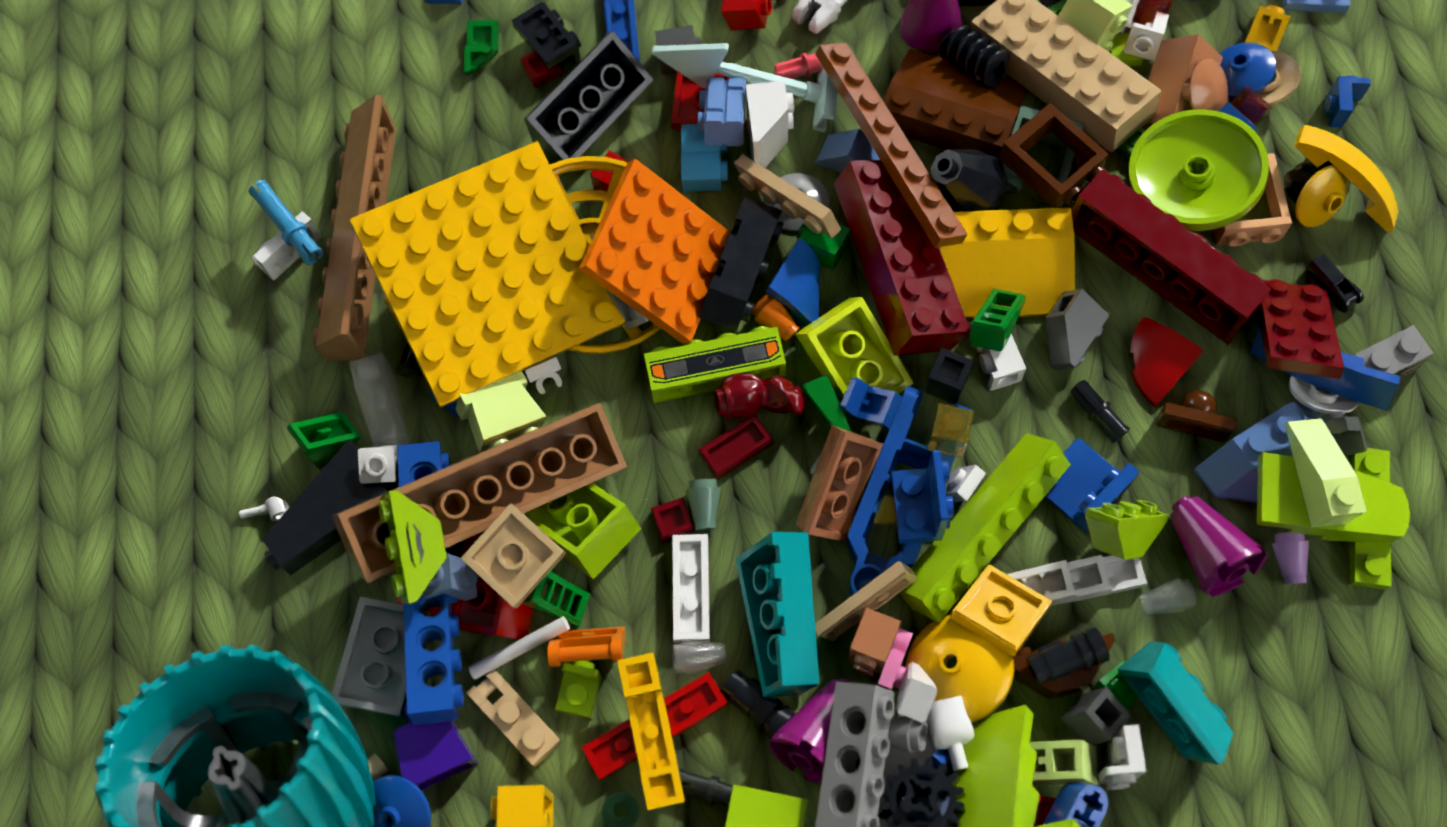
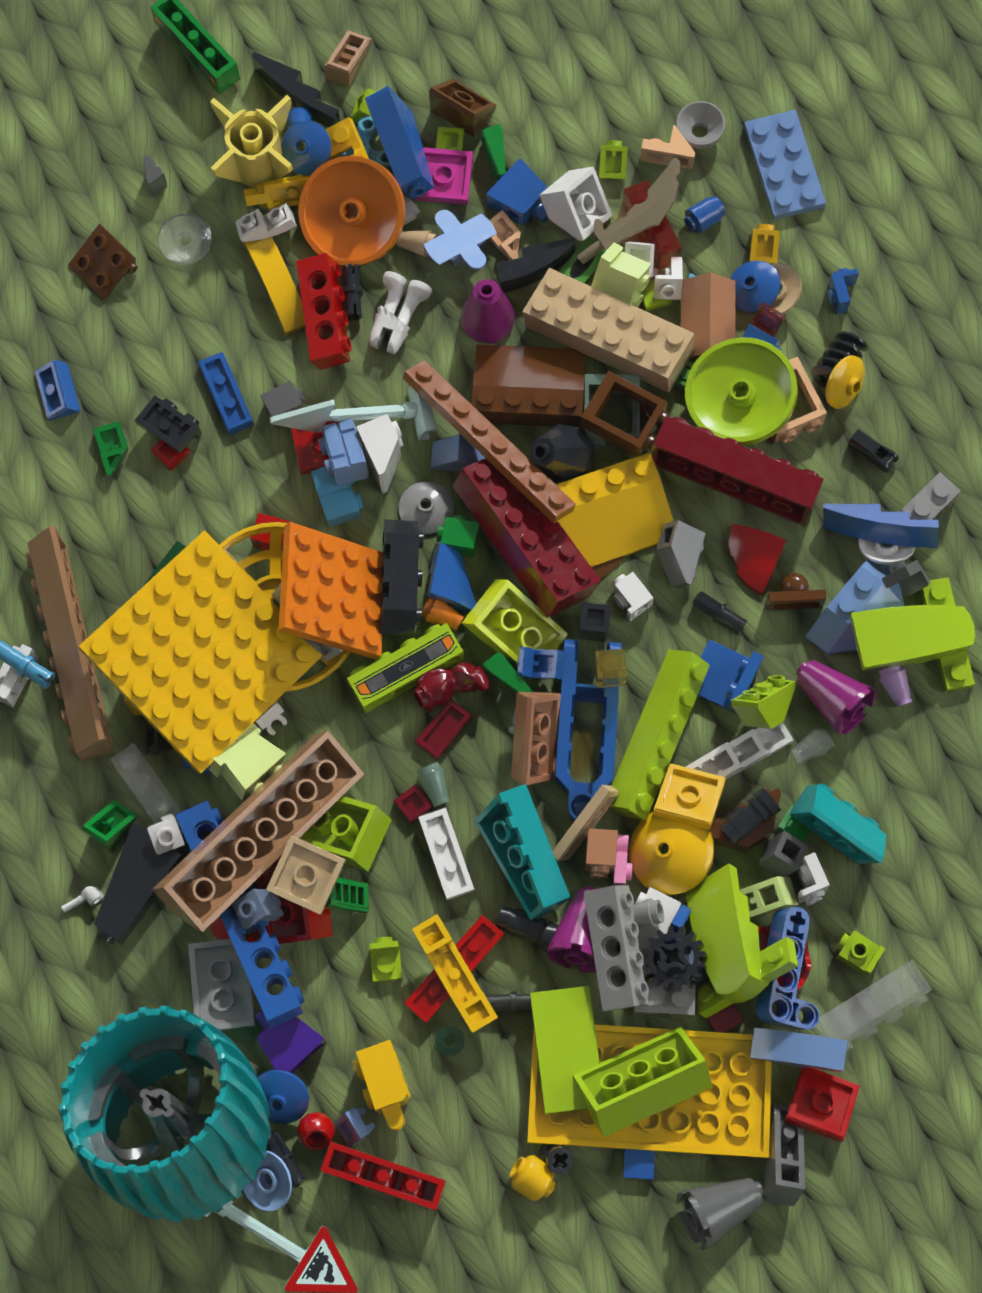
camera: 20 degrees left, 5 degrees up
(413, 544) = (228, 891): lime slope -> none
(515, 718) = (343, 998): tan plate -> none
(519, 647) = (329, 943): white bar -> none
(587, 100) = (227, 477): black slope -> none
(587, 645) = (382, 924): orange plate -> none
(697, 656) = (468, 905): clear cone -> none
(792, 200) = (426, 514): tan plate -> none
(798, 67) = (393, 387): coral axle -> none
(916, 694) = (645, 881): white slope -> none
(922, 502) = (604, 732): blue bracket -> none
(951, 729) = (678, 899): white piece -> none
(964, 482) = (631, 704): white plate -> none
(974, 55) = (534, 340): black piece -> none
(995, 323) = (618, 565): green slope -> none
(1206, 86) = (730, 315): nougat dish -> none
(1299, 330) = (853, 502): dark red plate -> none
(1324, 146) = (835, 343): yellow slope -> none
(1324, 474) = (900, 616): yellowish green slope -> none

